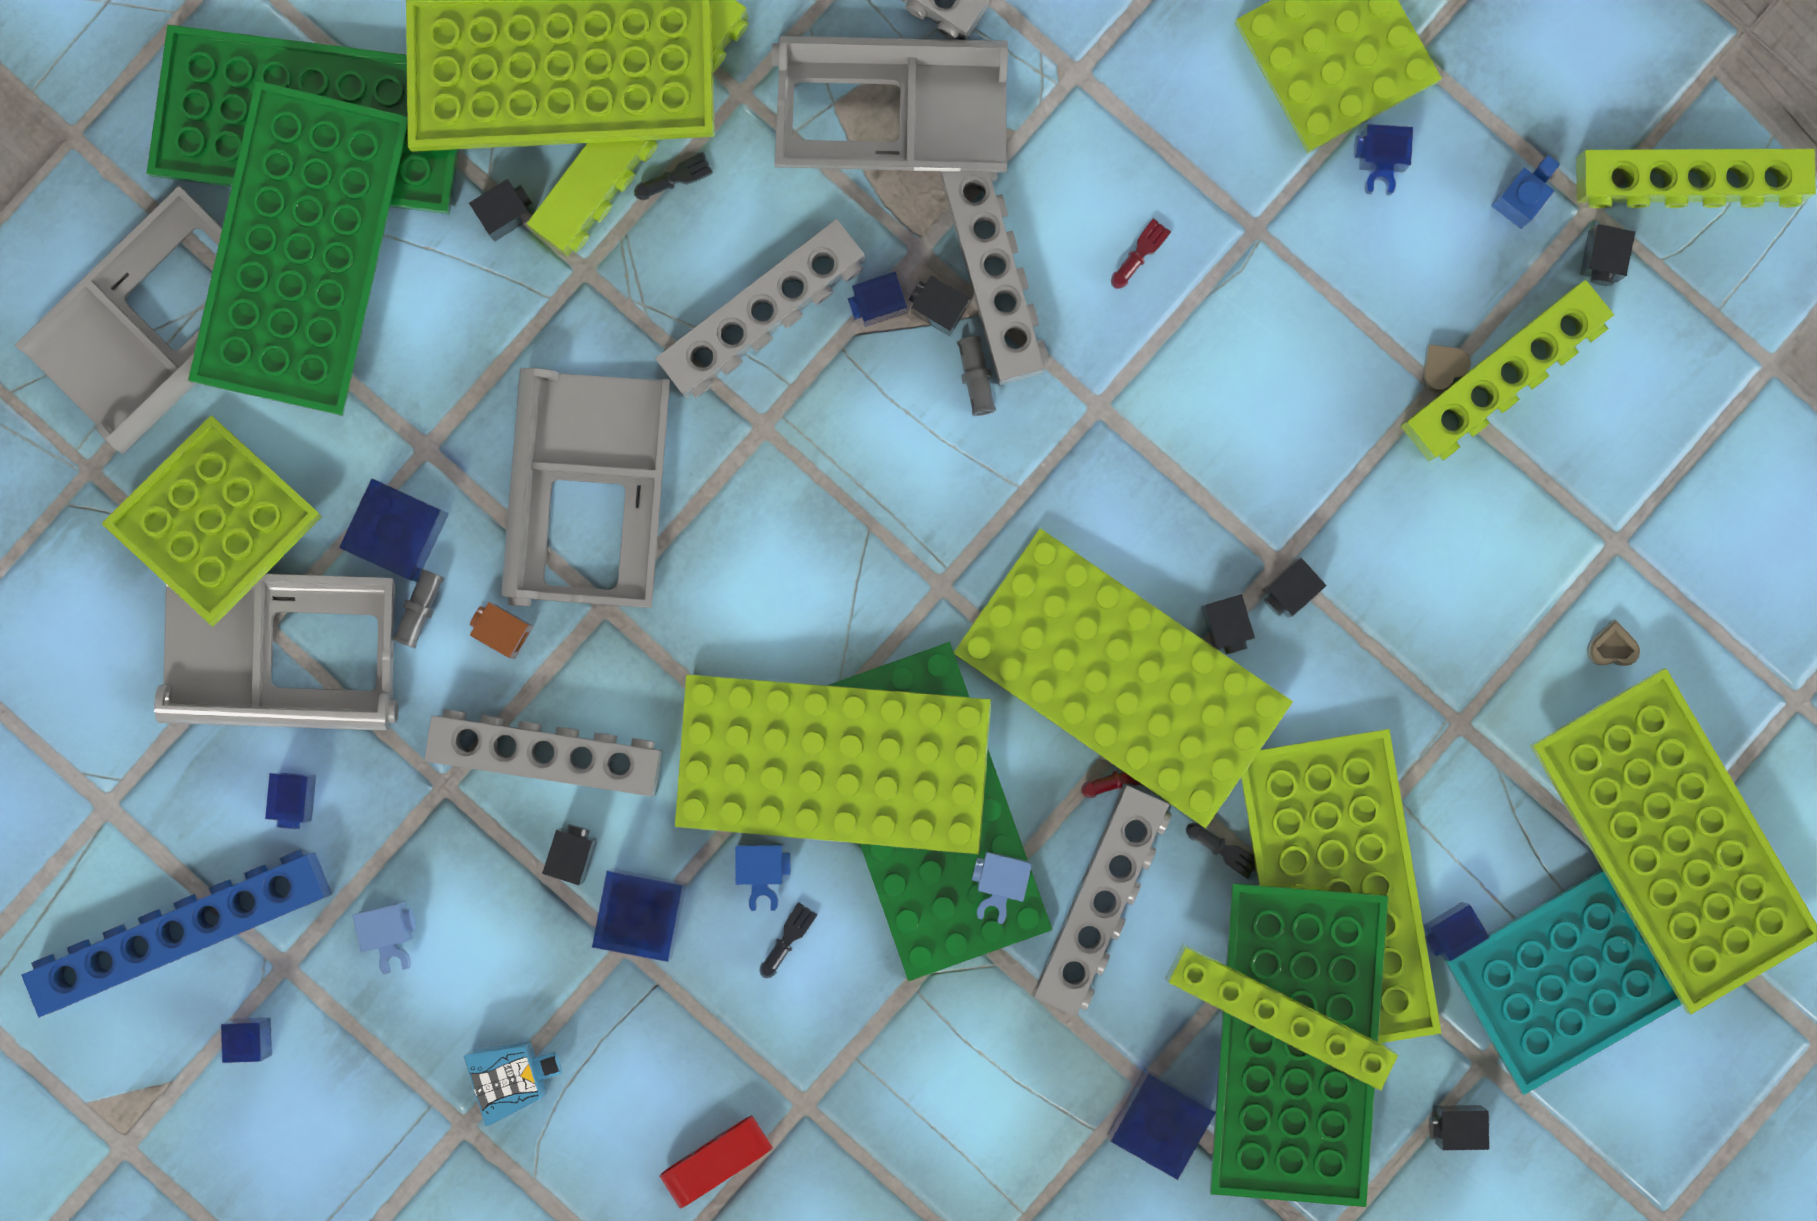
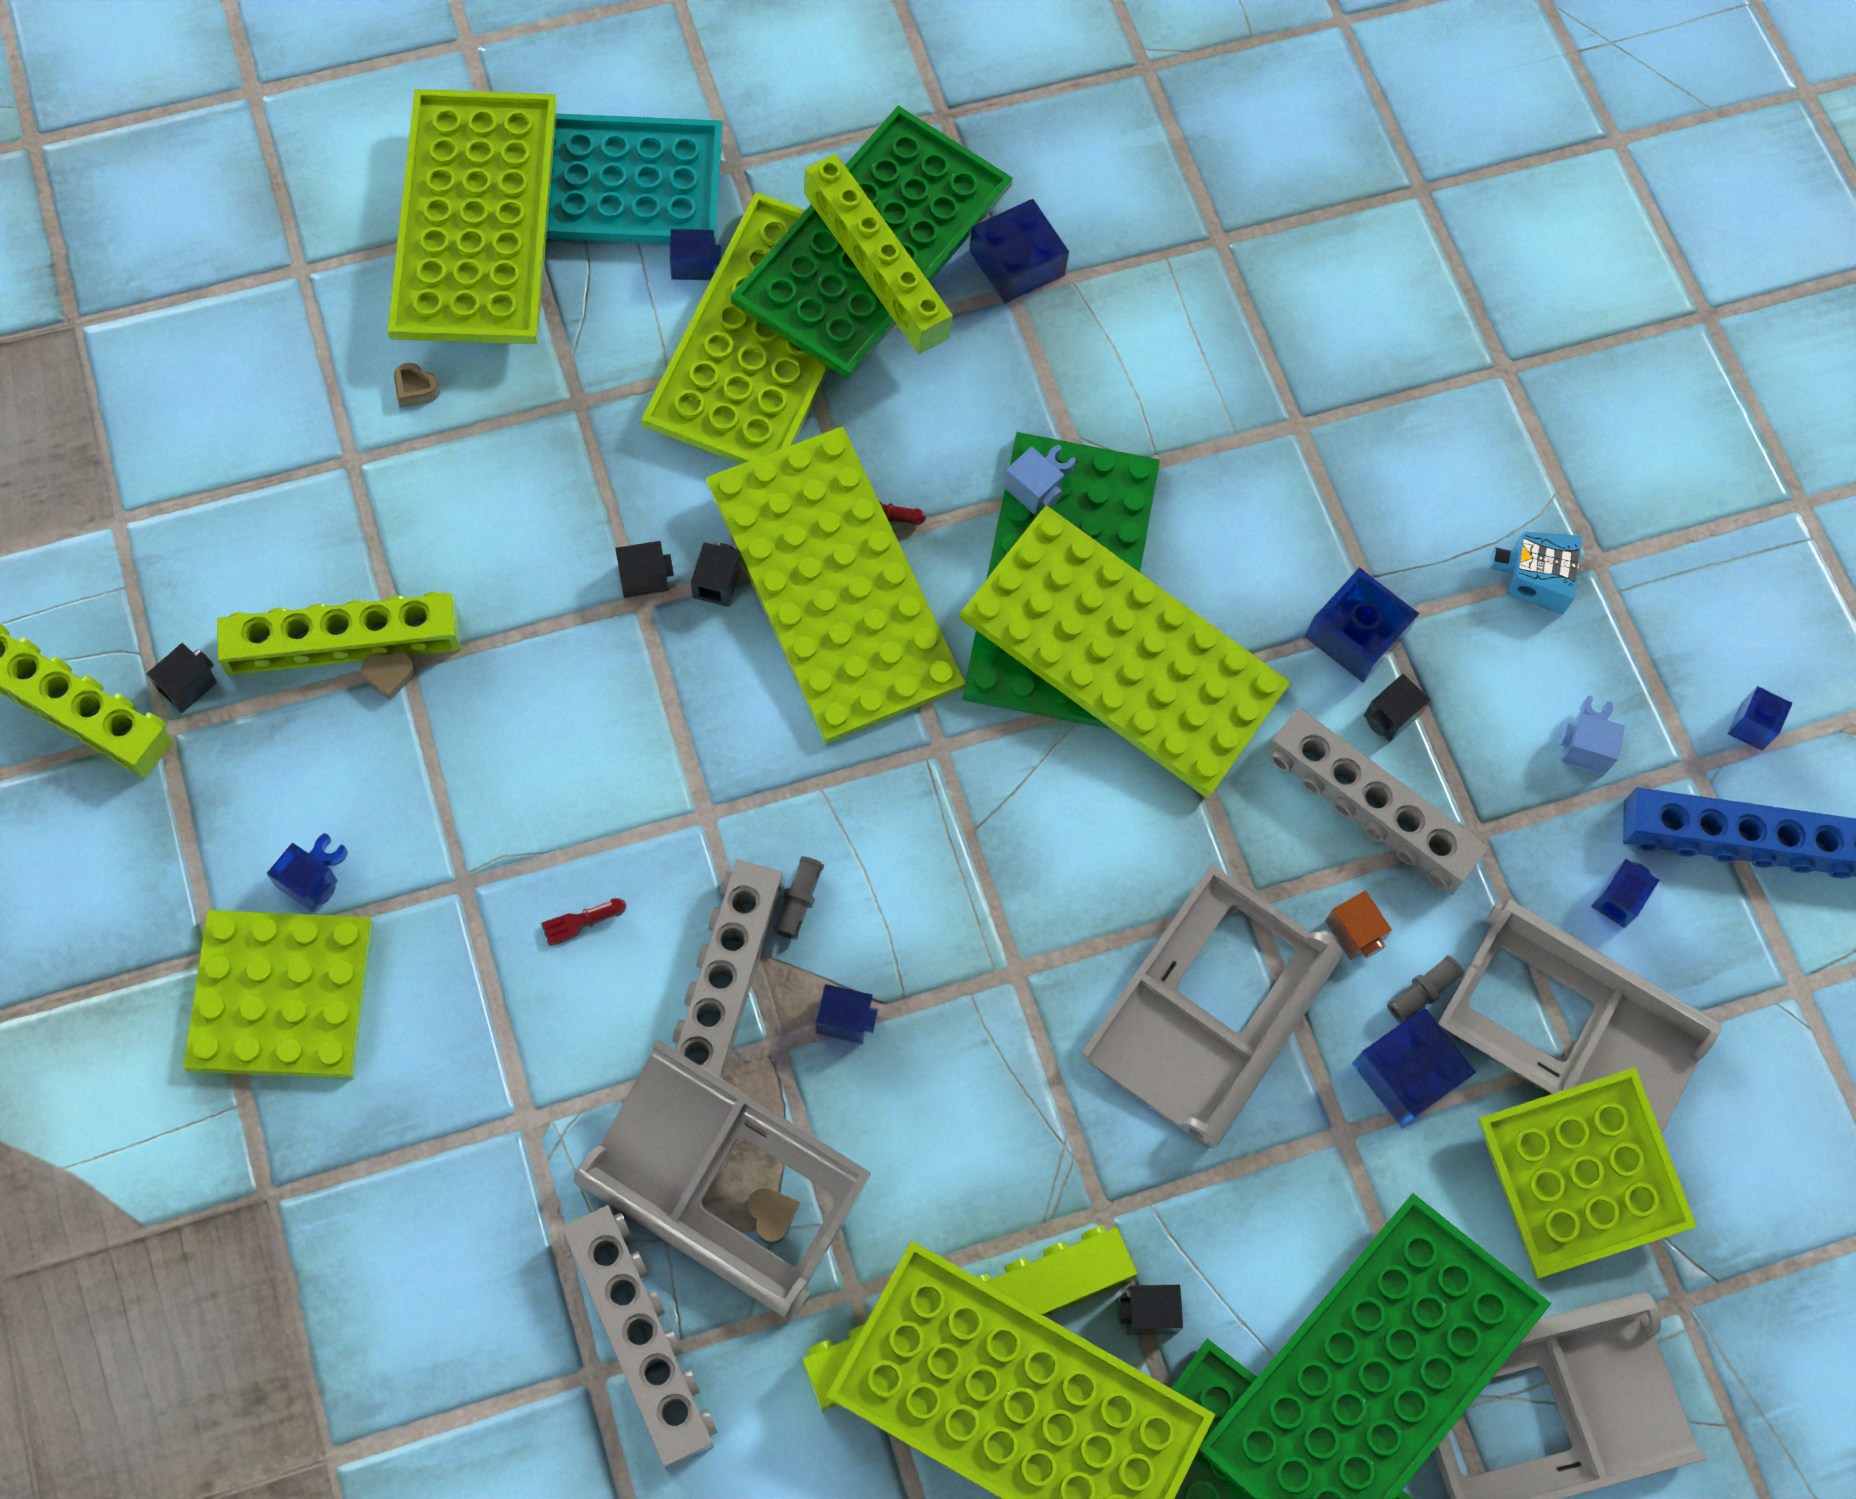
camera: 160 degrees left, 20 degrees down
(685, 172) = (952, 1245): black piece -> none
(716, 1161) = (1398, 417): red beam -> none
(760, 867) = (1234, 607): blue brick -> none
(794, 929) = (1232, 551): black piece -> none
(830, 242) = (941, 1084): light grey brick -> none
(839, 112) = (772, 1214): none -> dark tan tile
(938, 304) = (793, 976): black brick -> none
(1077, 994) = (894, 483): light grey brick -> none
(1233, 855) = (831, 406): black piece -> none
(1460, 1127) = (785, 127): black brick -> none
(1526, 193) = (213, 763): blue brick -> none

